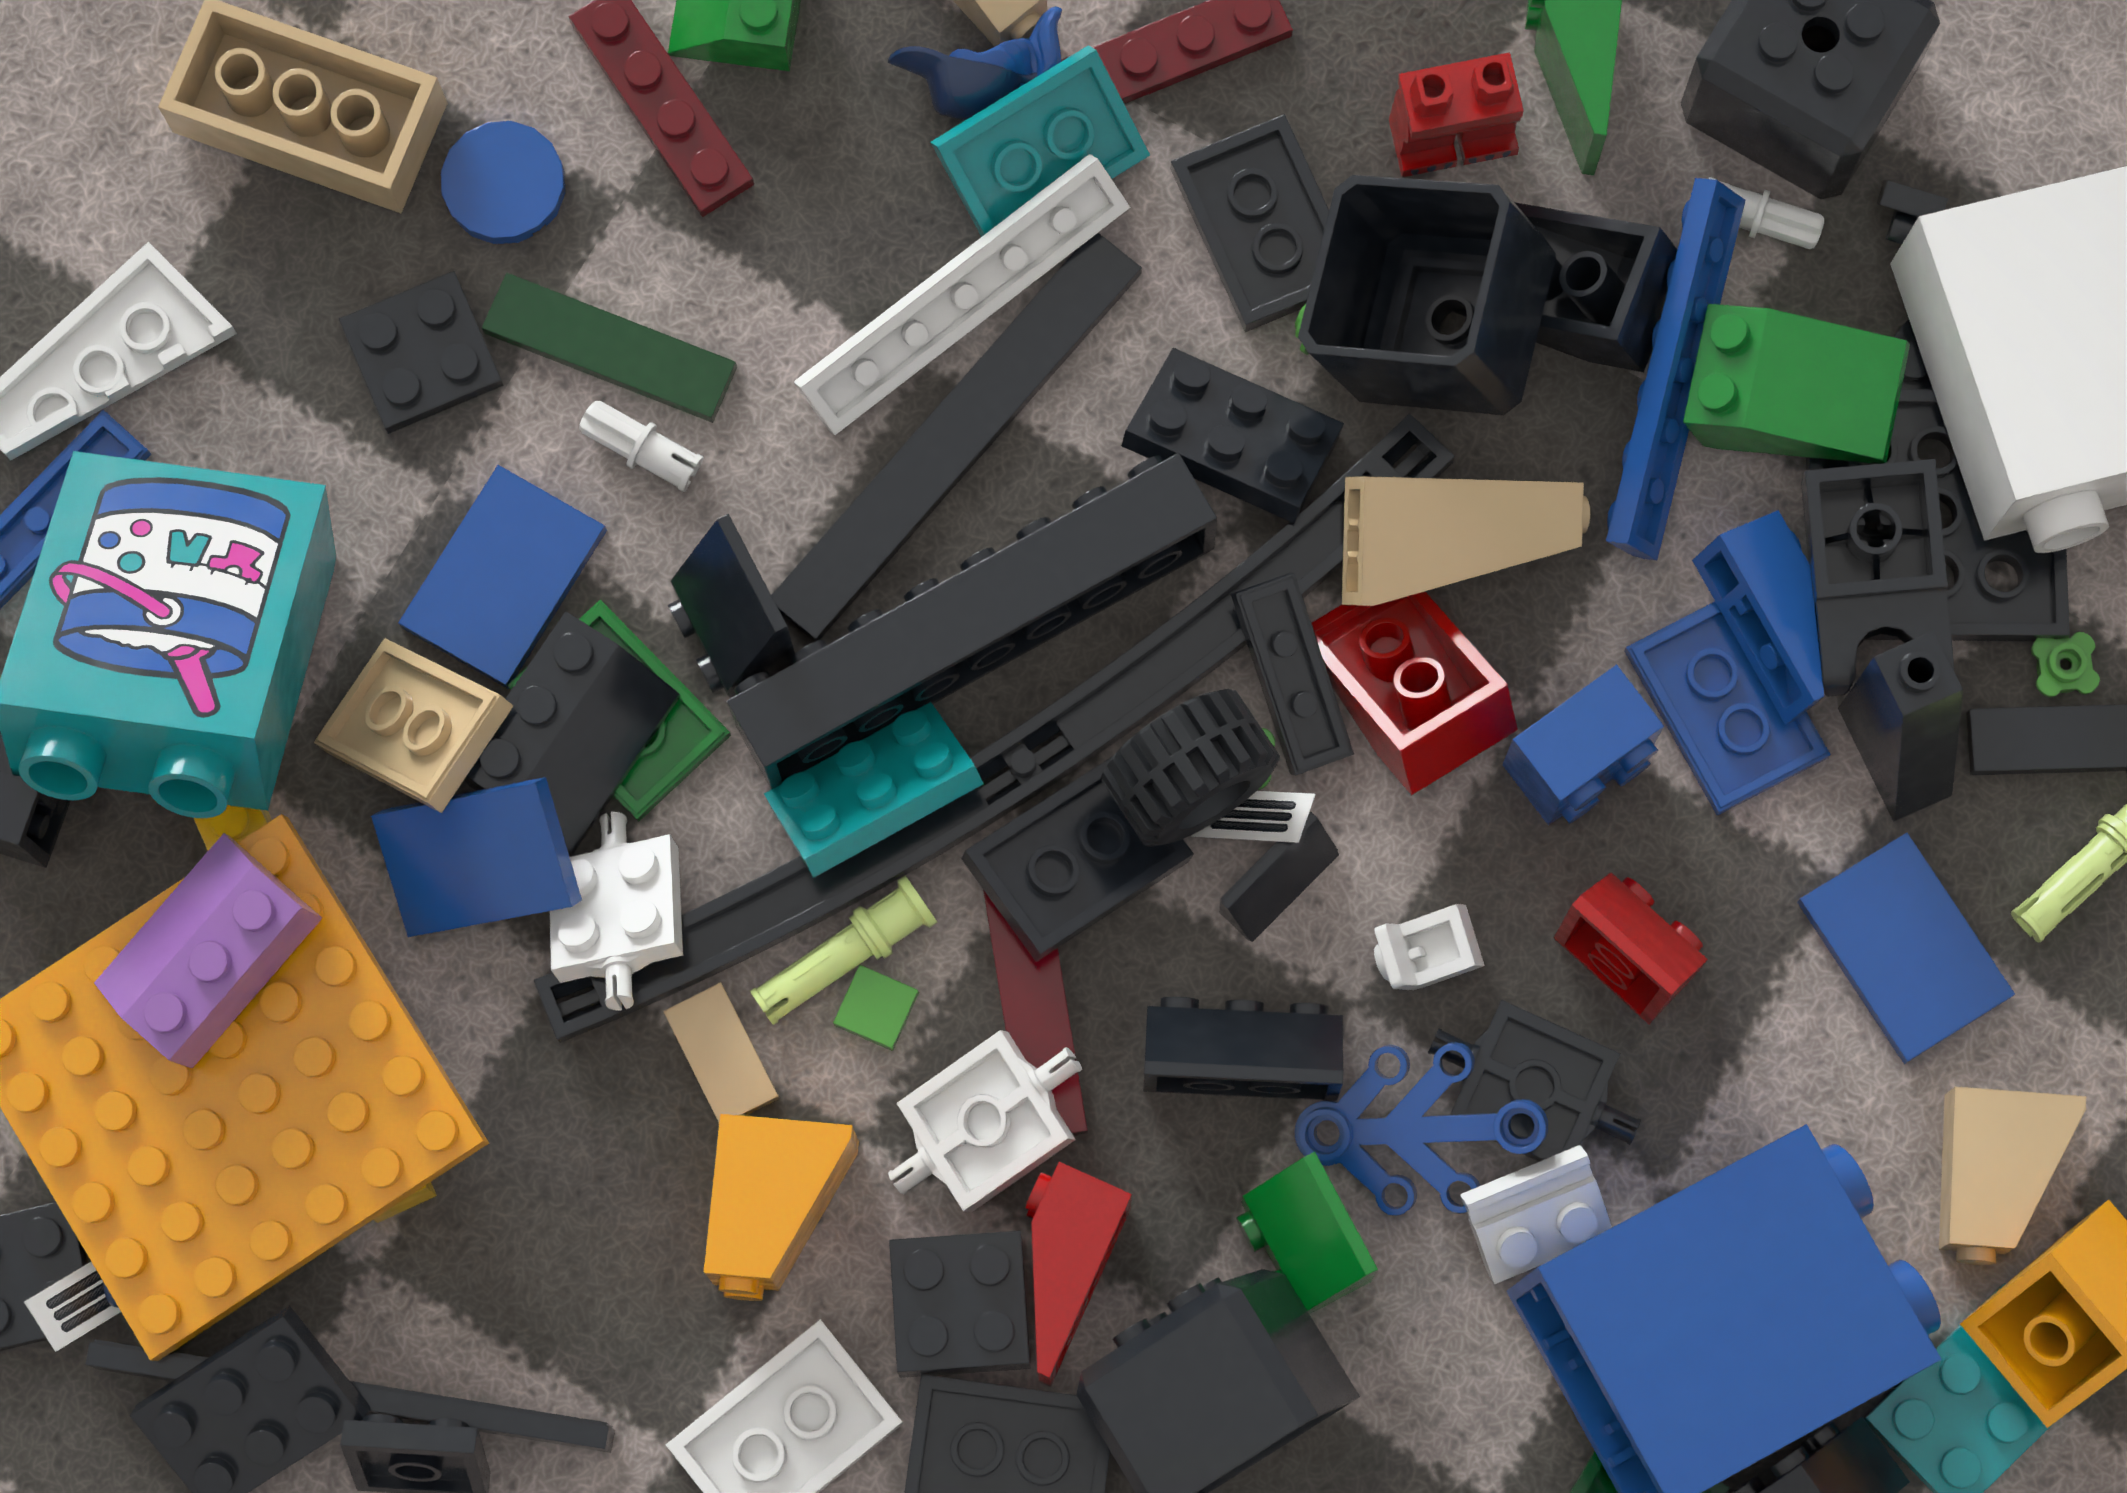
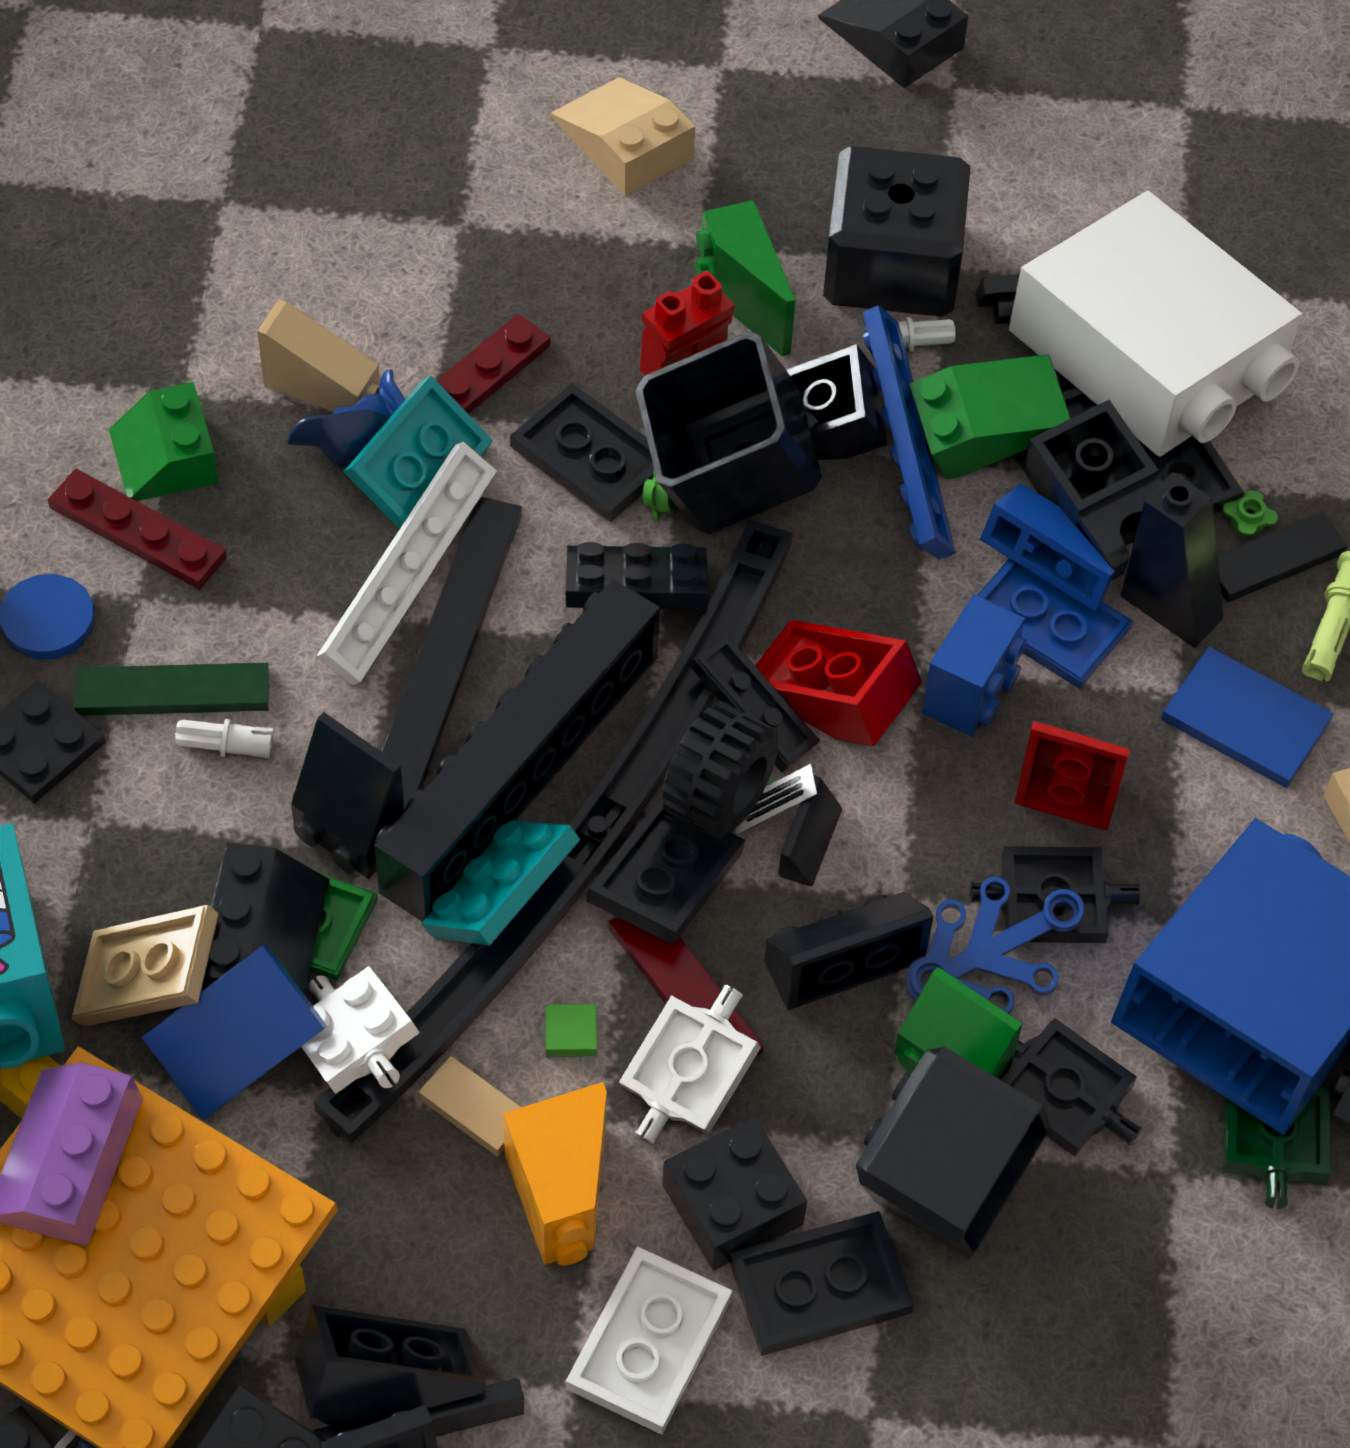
camera: 30 degrees left, 20 degrees down
(470, 1343) = (376, 1365): none -> black slope
(502, 576) = (161, 855): blue tile -> none
(869, 934) = (543, 981): yellowish green pin -> none
(1071, 1242) = (792, 1108): red slope -> none
(1417, 1341) = (1074, 1085): none -> black plate
(1427, 948) = (937, 835): white bracket -> none
(1438, 532) = (809, 572): tan slope -> none
(1536, 1213) = (1097, 969): white plate -> none

